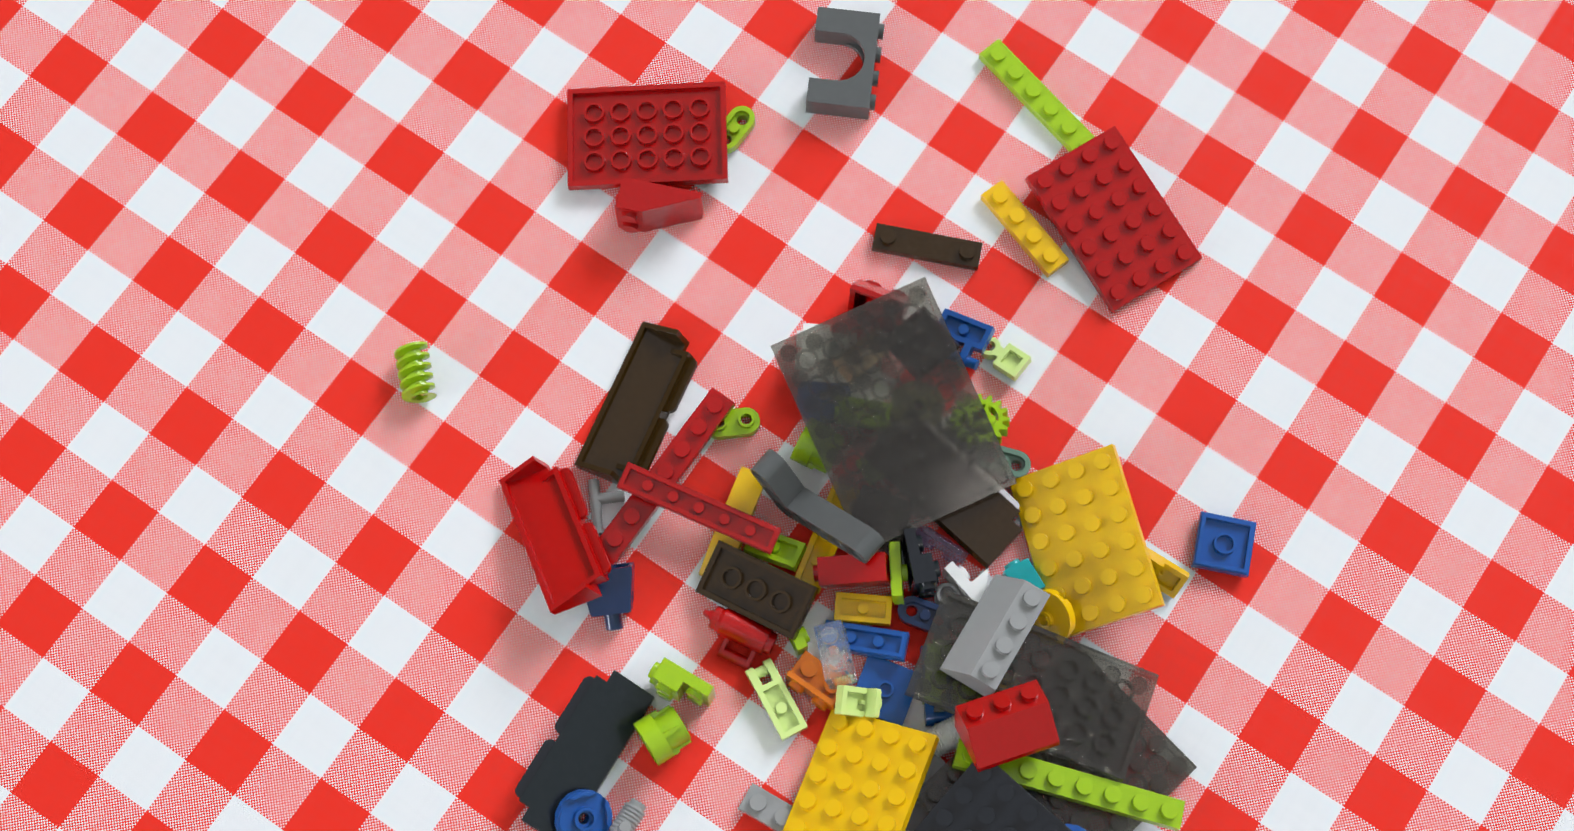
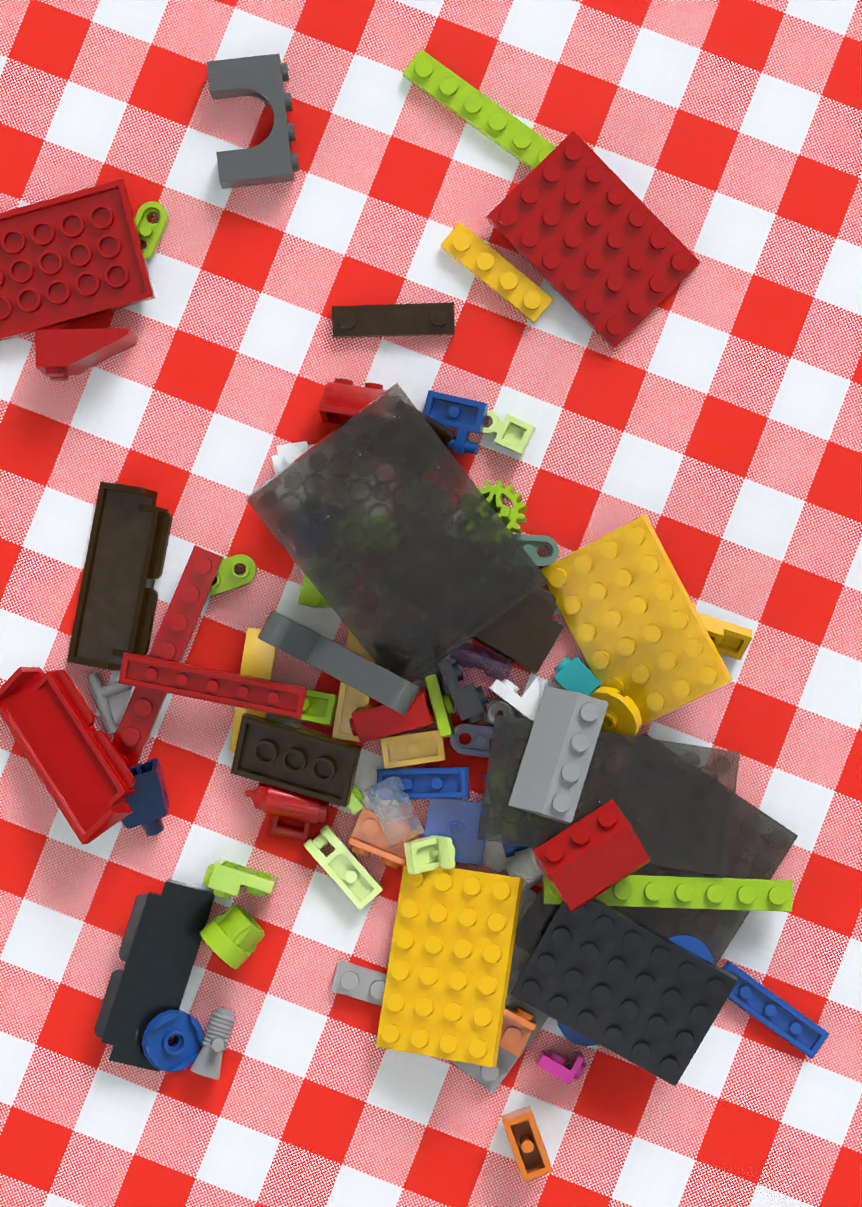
camera: 10 degrees left, 15 degrees up
(1223, 544) = (783, 587): blue plate -> none

